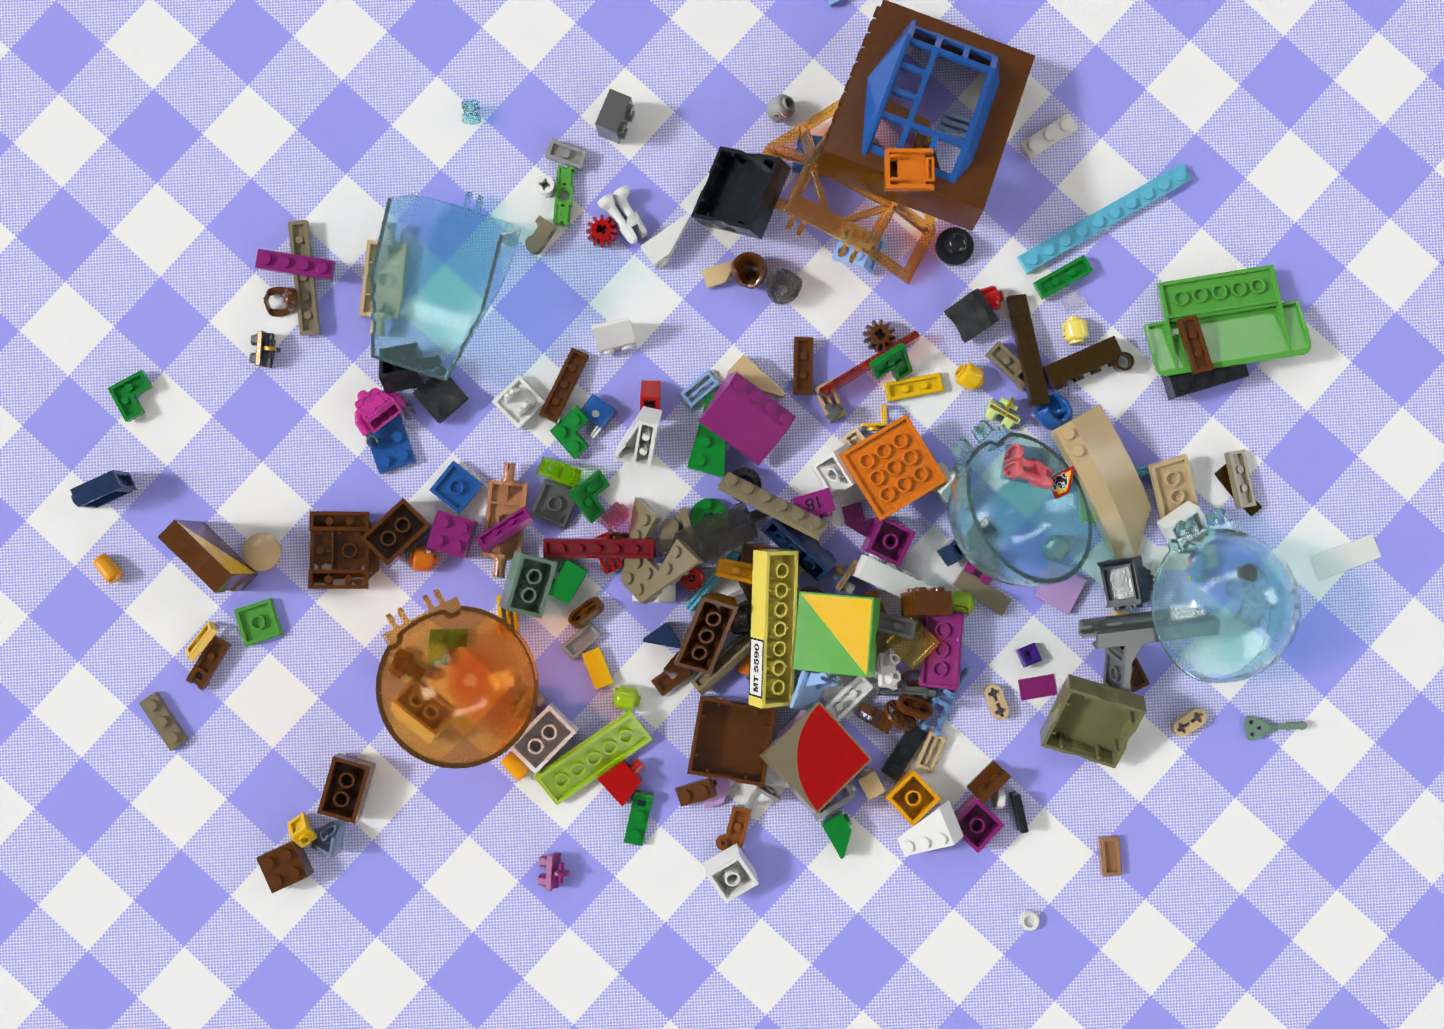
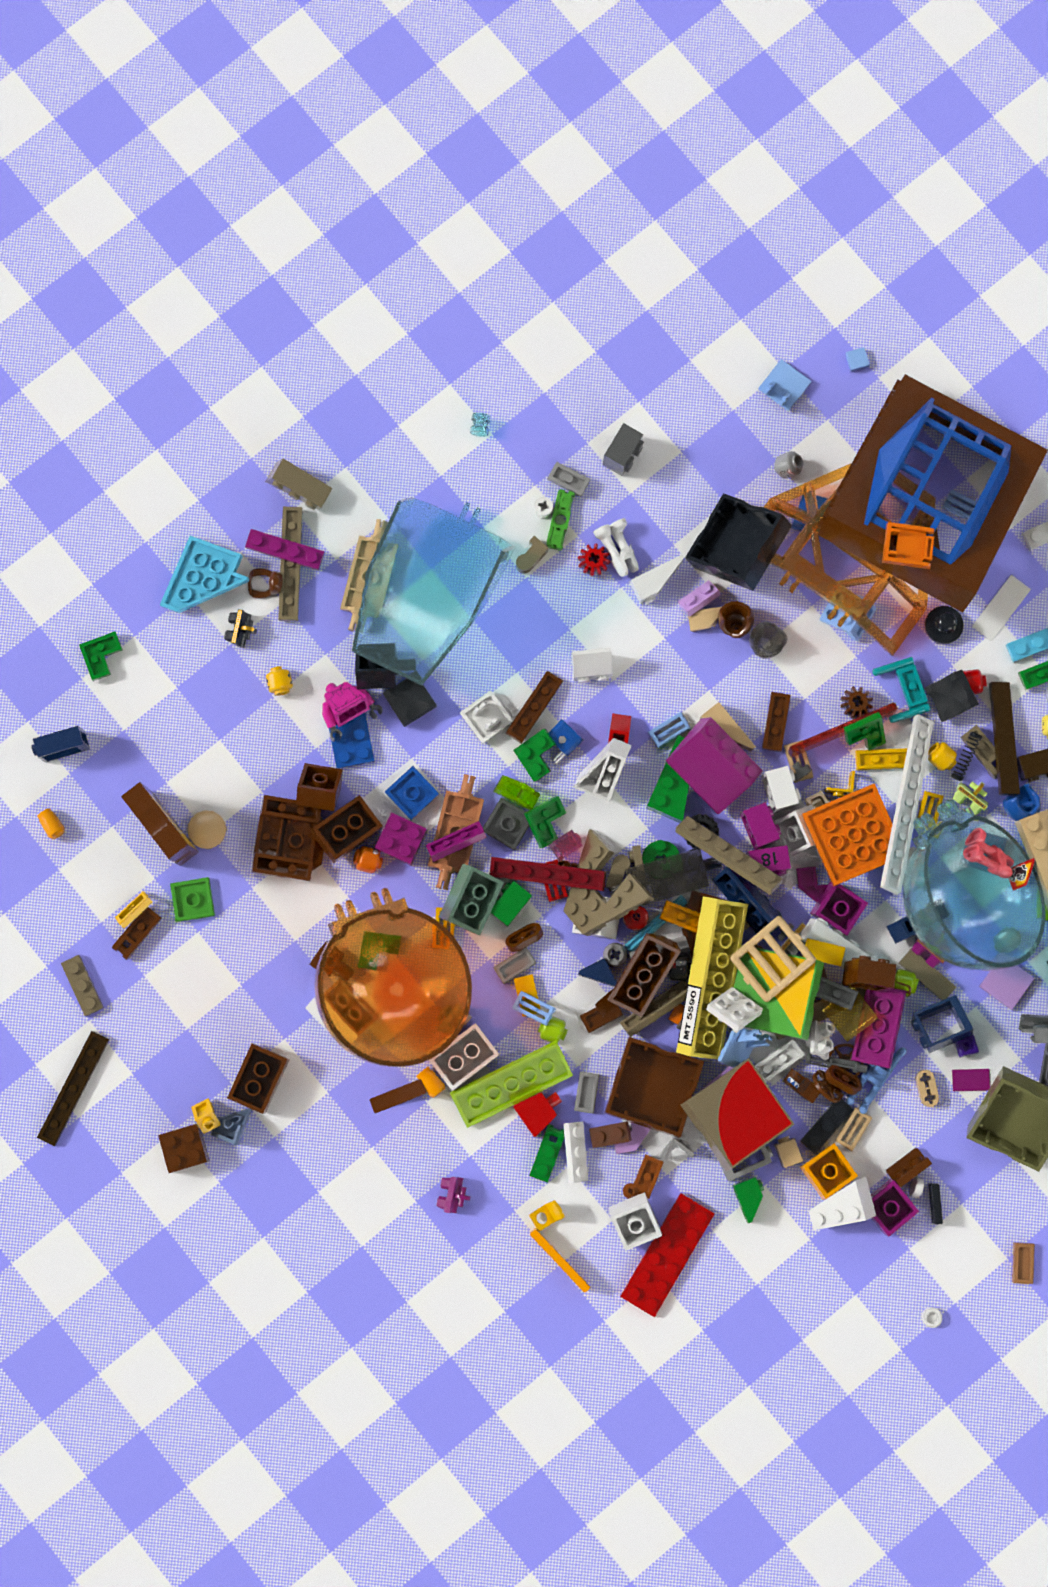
camera: 10 degrees right, 5 degrees down
(170, 821) = (73, 1088): none -> dark brown tile
(218, 301) = (202, 575): none -> medium azure wing
(299, 197) = (299, 484): none -> dark tan wedge
(310, 396) = (279, 681): none -> yellow head
(363, 495) = (319, 787): none -> reddish brown brick
(485, 783) = (397, 1096): none -> reddish brown sticker
(619, 686) = (548, 1016): none -> light blue tile
(652, 875) = (551, 1210): none -> yellow bracket
(664, 919) = (565, 1266): none -> light orange tile
(665, 813) = (576, 1152): none -> white plate
(668, 753) = (586, 1092): none -> light grey tile
(669, 615) = (616, 947): none -> light grey piece
(711, 254) = (699, 598): none -> lavender plate
(766, 29) = (784, 385): none -> light blue plate
(767, 899) = (667, 1255): none -> red plate
(798, 657) = (734, 1009): none -> white plate
(801, 471) = (760, 826): none -> magenta brick
(815, 432) = (780, 789): none -> white brick
(853, 611) = (780, 983): none -> tan bar
(879, 587) = (826, 952): none -> yellow tile
(929, 311) = (910, 685): none -> teal plate
(941, 431) = (907, 805): none -> white plate
(964, 424) = (923, 803): none -> yellow tile
(986, 394) = (975, 735): none -> black piece
(1008, 221) = (1001, 607): none -> white sticker
(1019, 628) = (950, 1003): none -> dark blue window

